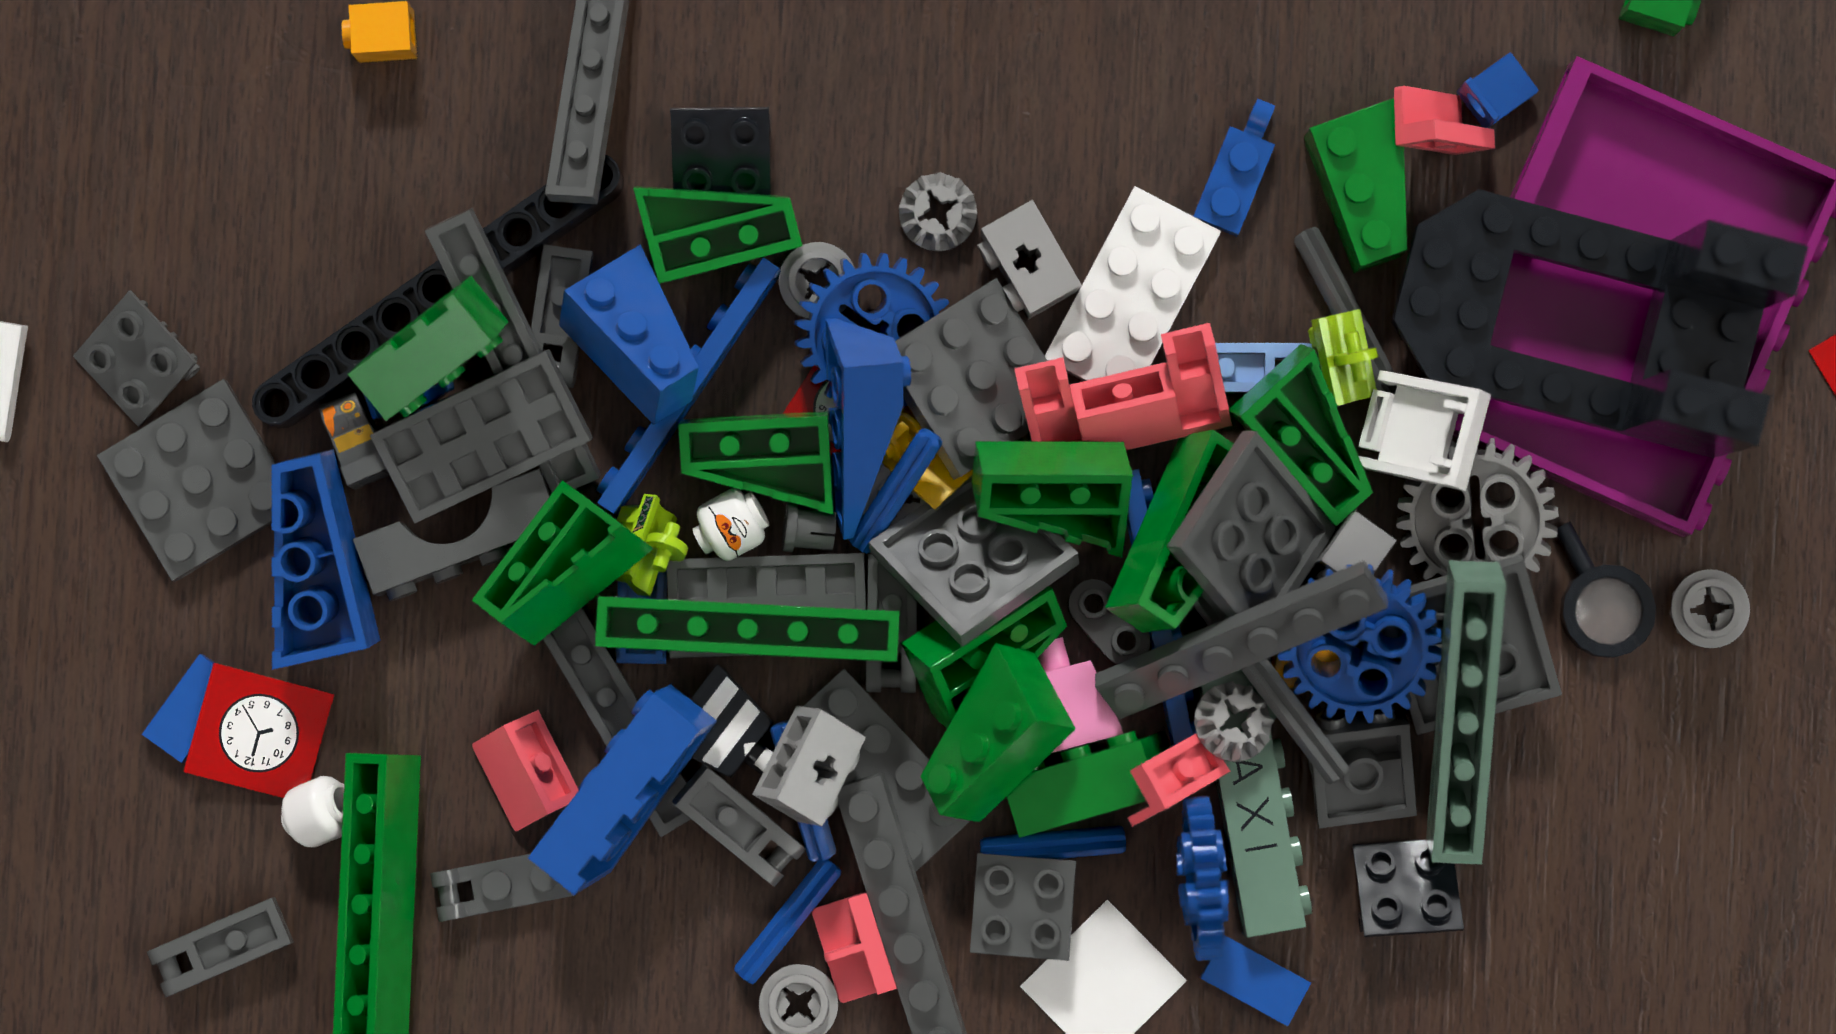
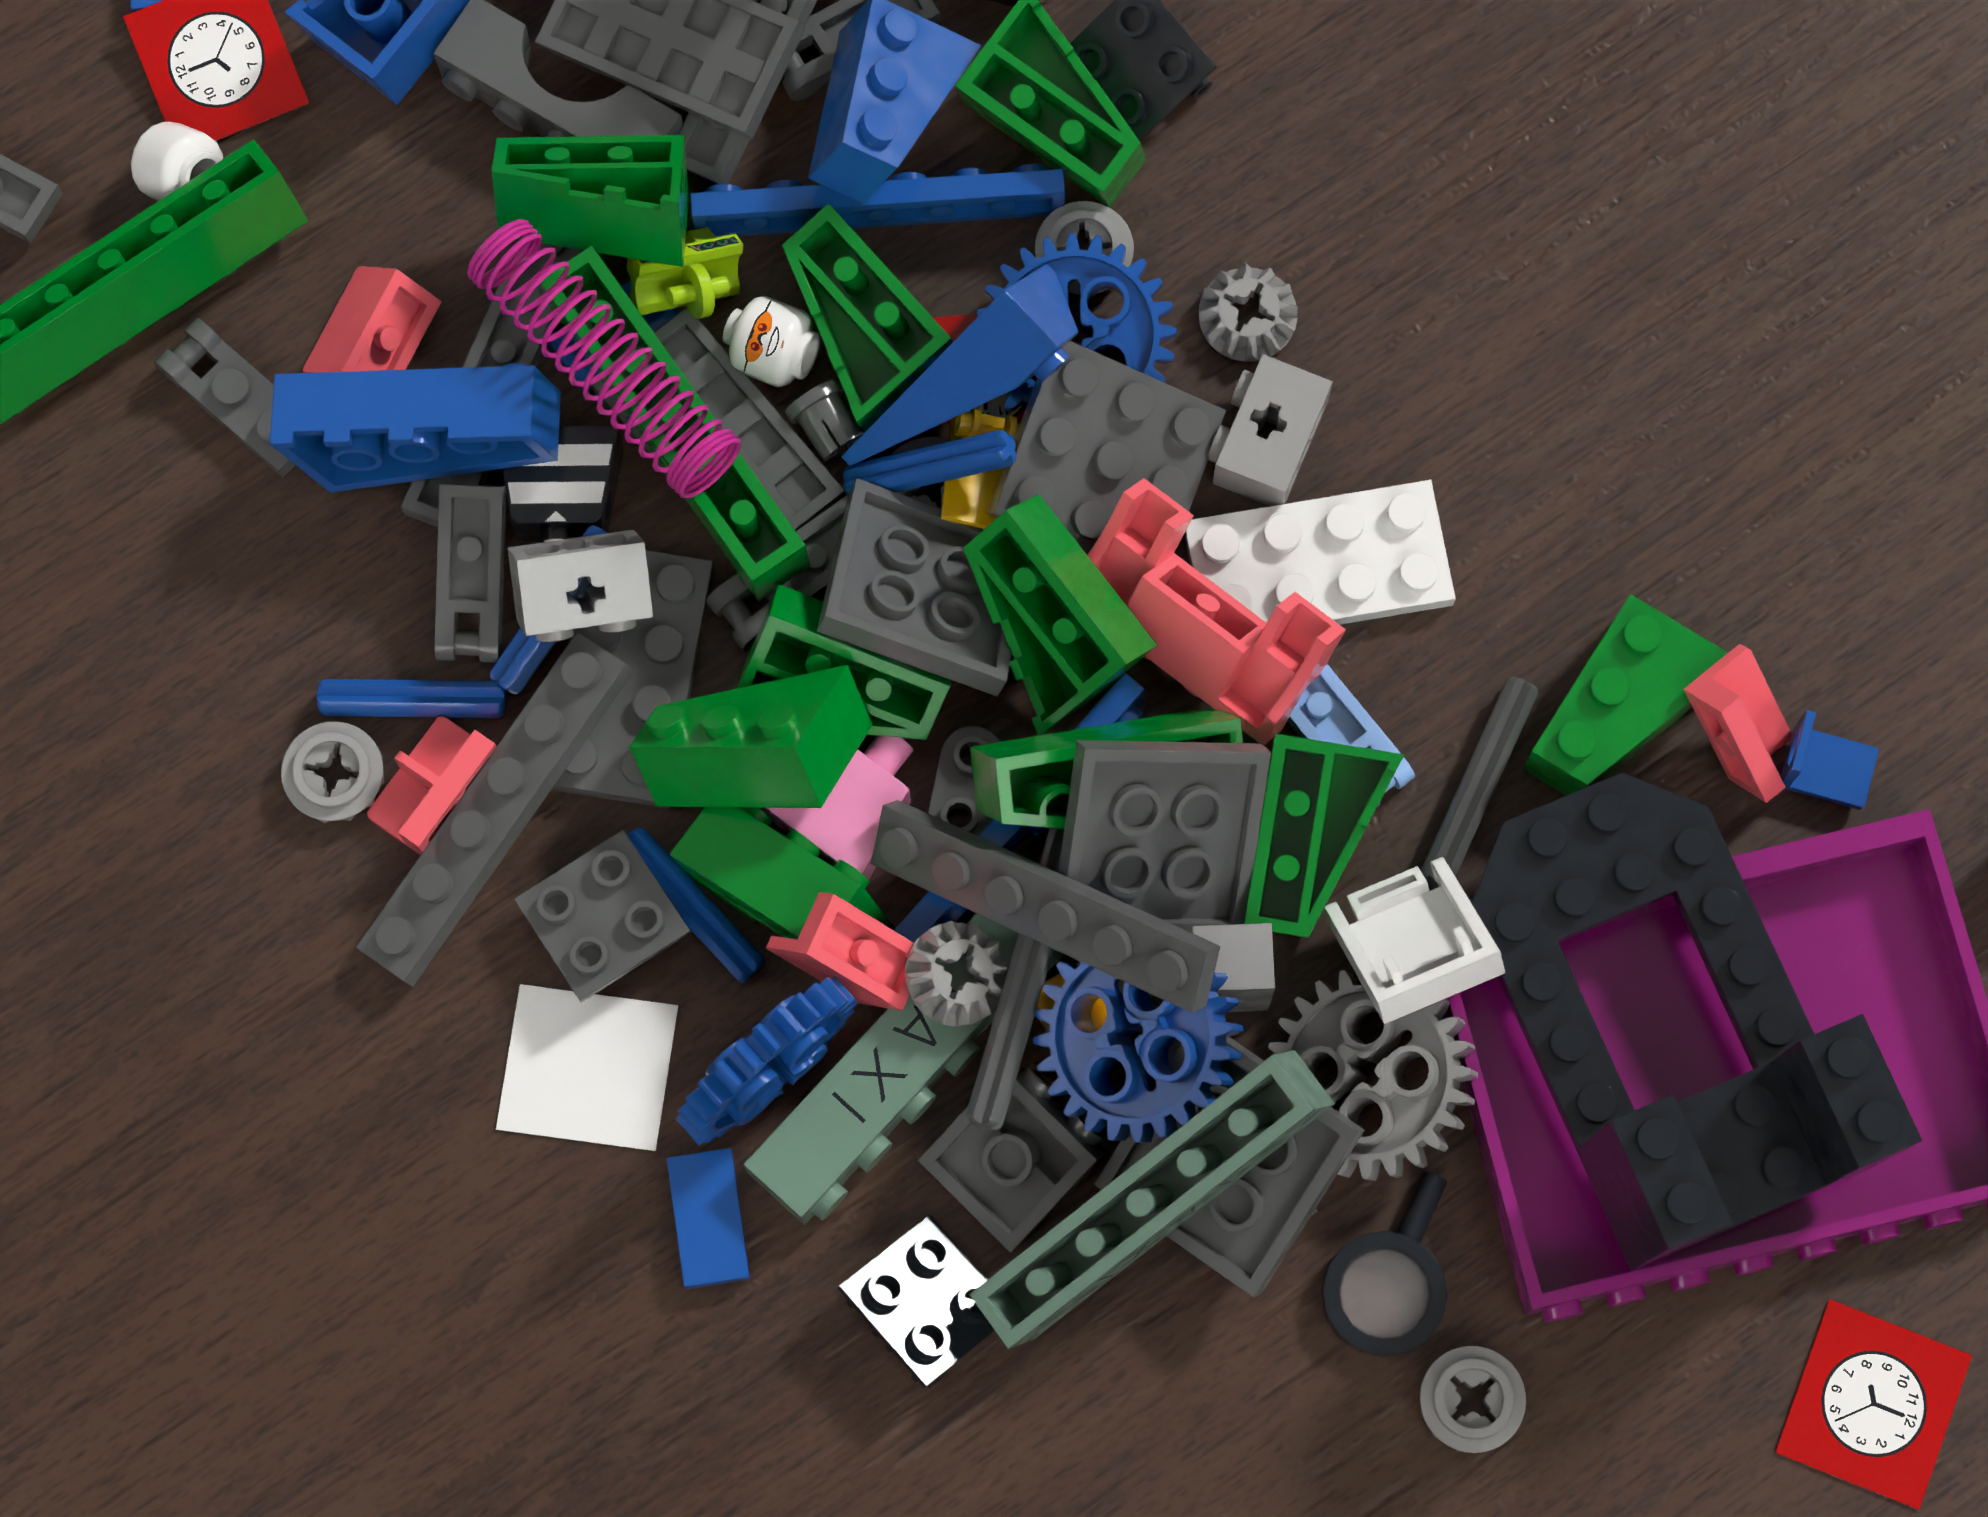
camera: 55 degrees right, 10 degrees down
(572, 663) = (512, 264): none -> dark pink piece
(1237, 173) = (1529, 571): blue plate -> none
(1344, 355) = (1425, 811): lime hips -> none

